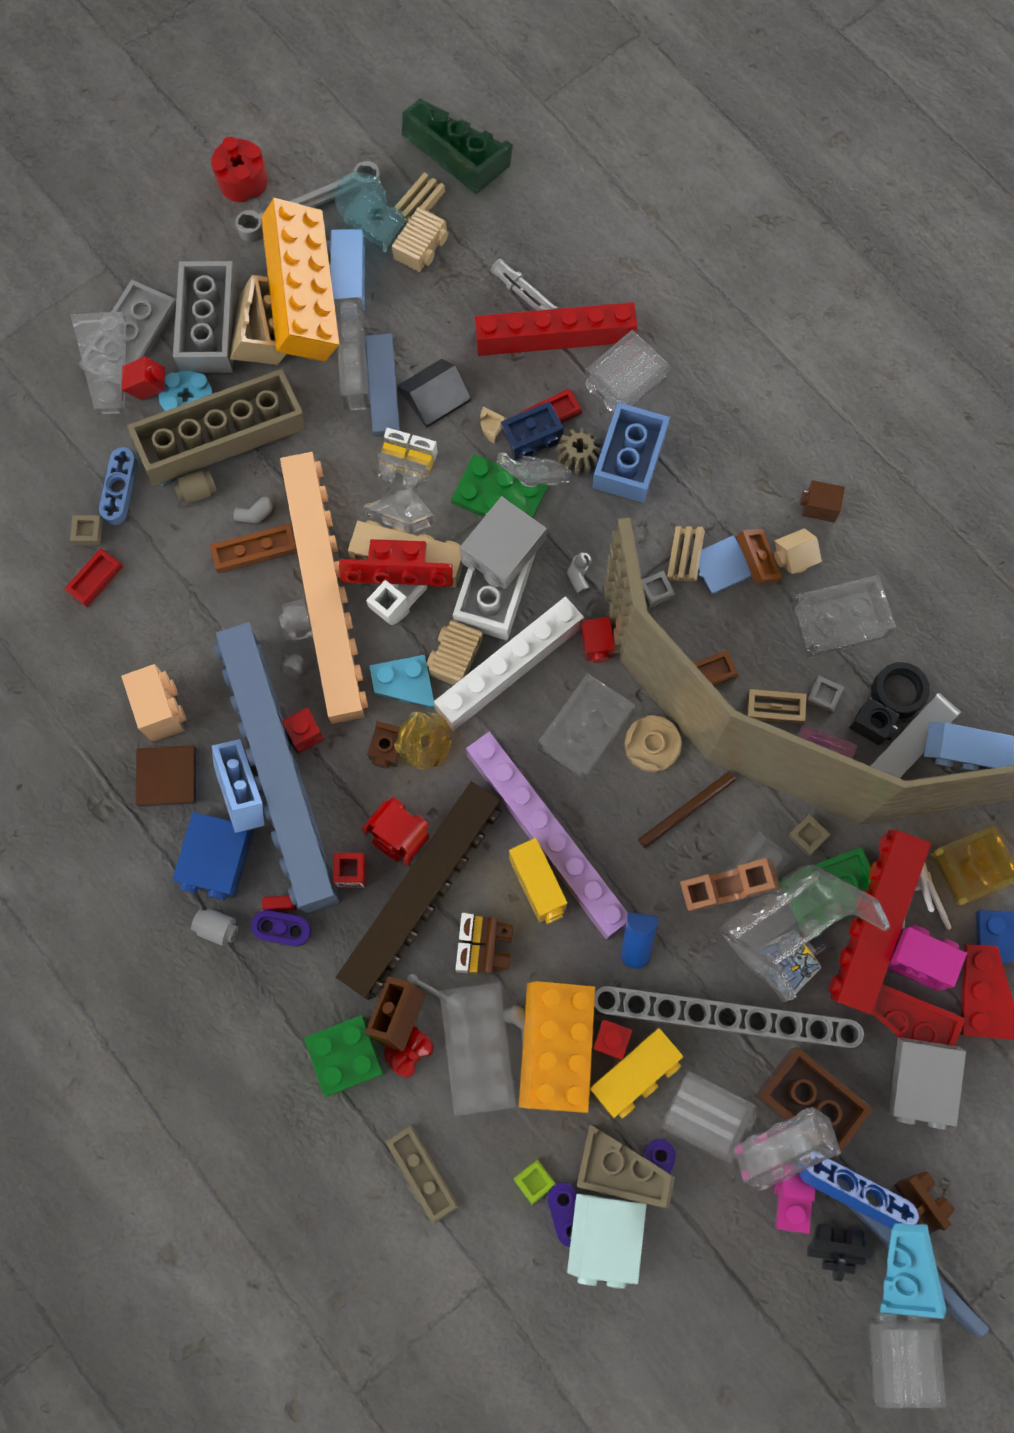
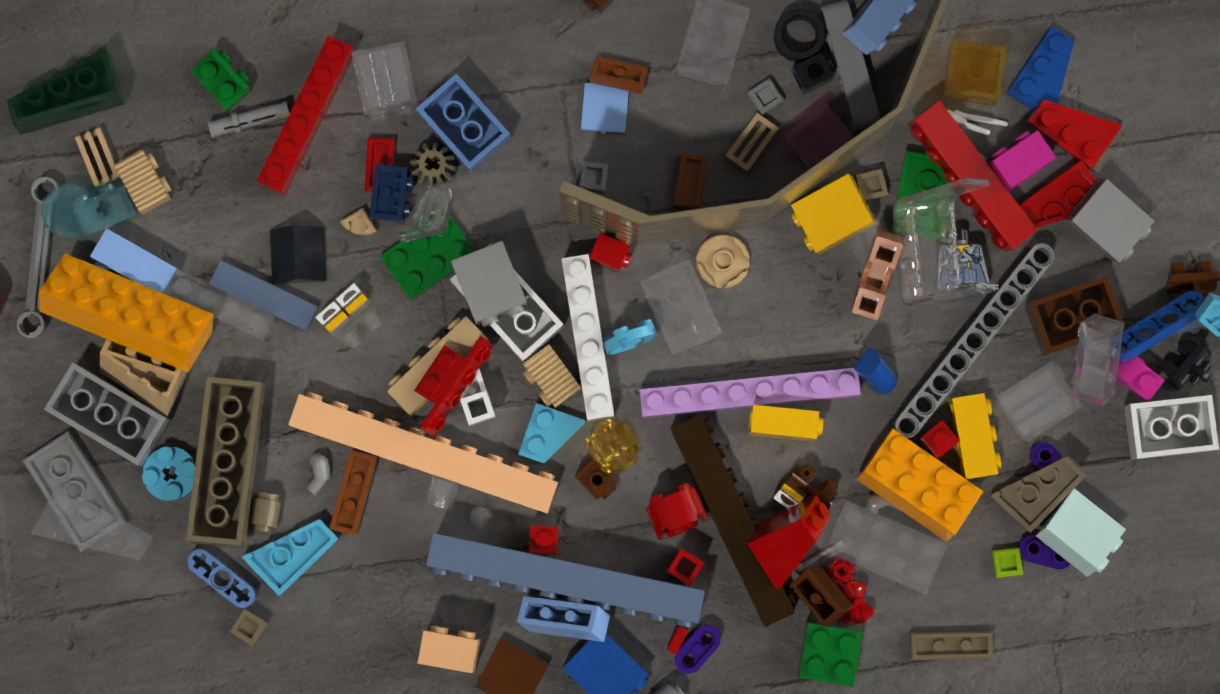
camera: 60 degrees left, 10 degrees up
(93, 577) = (295, 644): red tile -> none
(143, 378) = (135, 502): red brick -> none
(167, 529) = (291, 556): none -> medium azure wing
(402, 510) = (399, 347): clear wing -> none
(423, 1021) = (846, 576): none -> red plate
(428, 947) = (787, 538): none -> red slope
(529, 697) = (626, 339): none -> medium azure plate
(543, 253) = (221, 80): none -> green bracket
(577, 571) = (539, 233): light grey arm -> none
(675, 554) = (567, 110): tan tile -> none
(686, 809) = (793, 271): reddish brown bar -> none
(759, 813) = (832, 214): none -> yellow brick
(767, 1270) = (1171, 427): none -> white brick
(797, 551) = (634, 41): tan brick -> none

